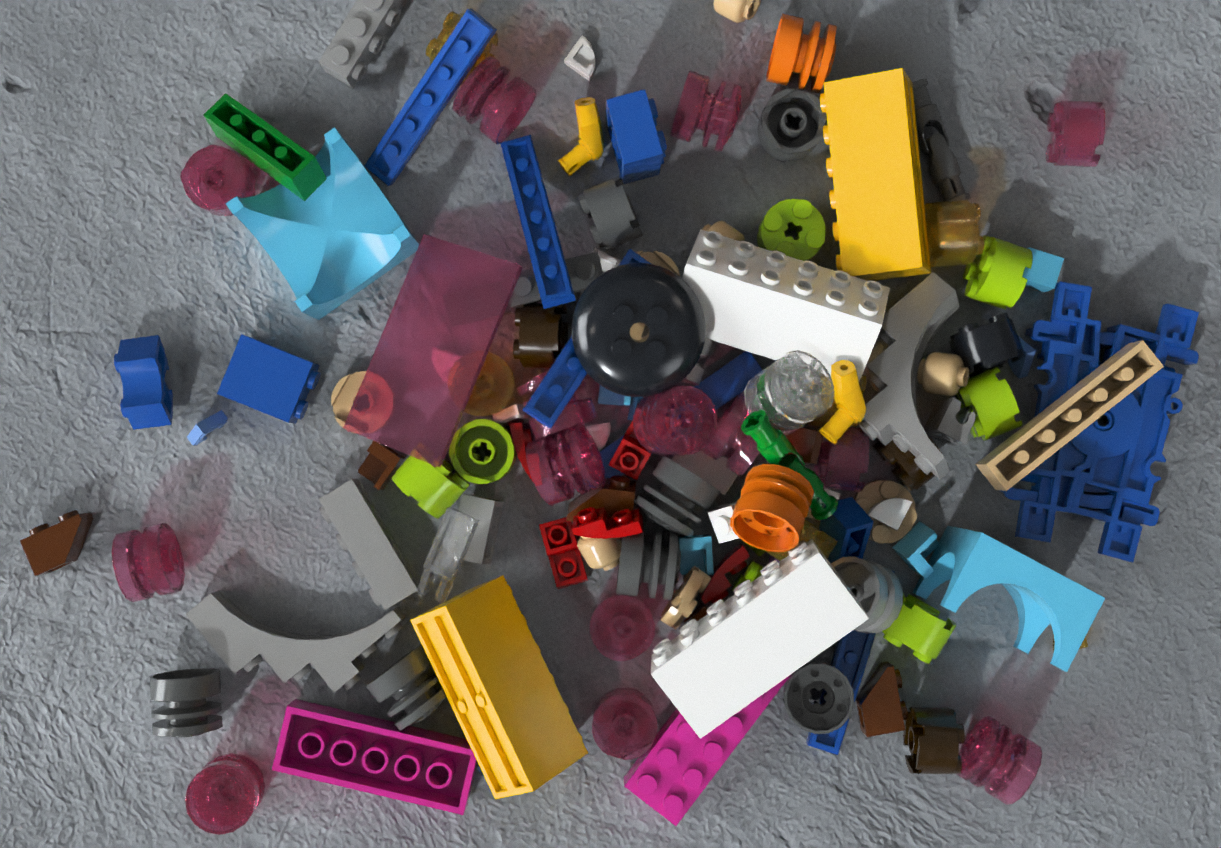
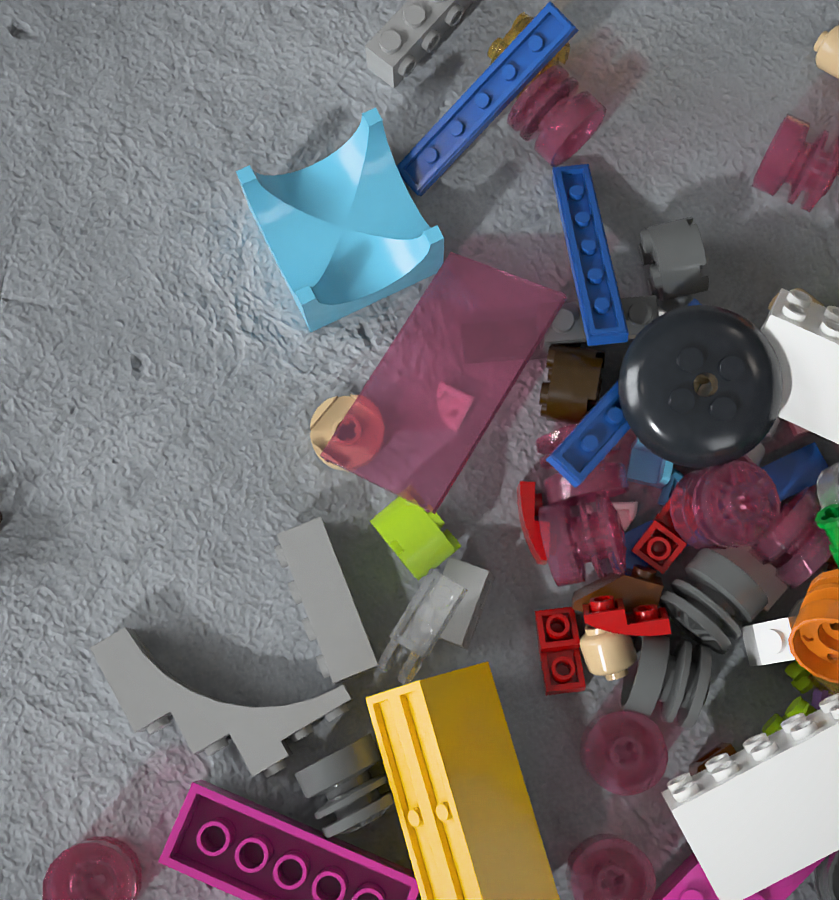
camera: 15 degrees right, 10 degrees down
(142, 372) = (96, 377): blue brick -> none
(148, 562) = (57, 577): clear pink wheel -> none
(186, 704) = (67, 758): dark grey wheel -> none
(201, 429) = (156, 429): medium blue tile -> none
(204, 171) = (214, 145): clear pink brick -> none
(265, 146) = (290, 126): green brick -> none
(269, 379) = (243, 387): blue brick -> none
(380, 465) = (355, 508): reddish brown panel -> none
(466, 460) = (504, 503): lime brick -> none
(501, 390) = (505, 451): clear yellow brick -> none
(510, 414) = (524, 471): white tile -> none
(582, 58) = (657, 93): white tile -> none
(590, 137) = (657, 178): yellow arm -> none
(634, 137) = (717, 172): blue brick -> none
(683, 599) = (708, 729): tan plate -> none
(696, 552) = (729, 680): medium azure panel -> none
(732, 563) = (748, 716): red slope -> none

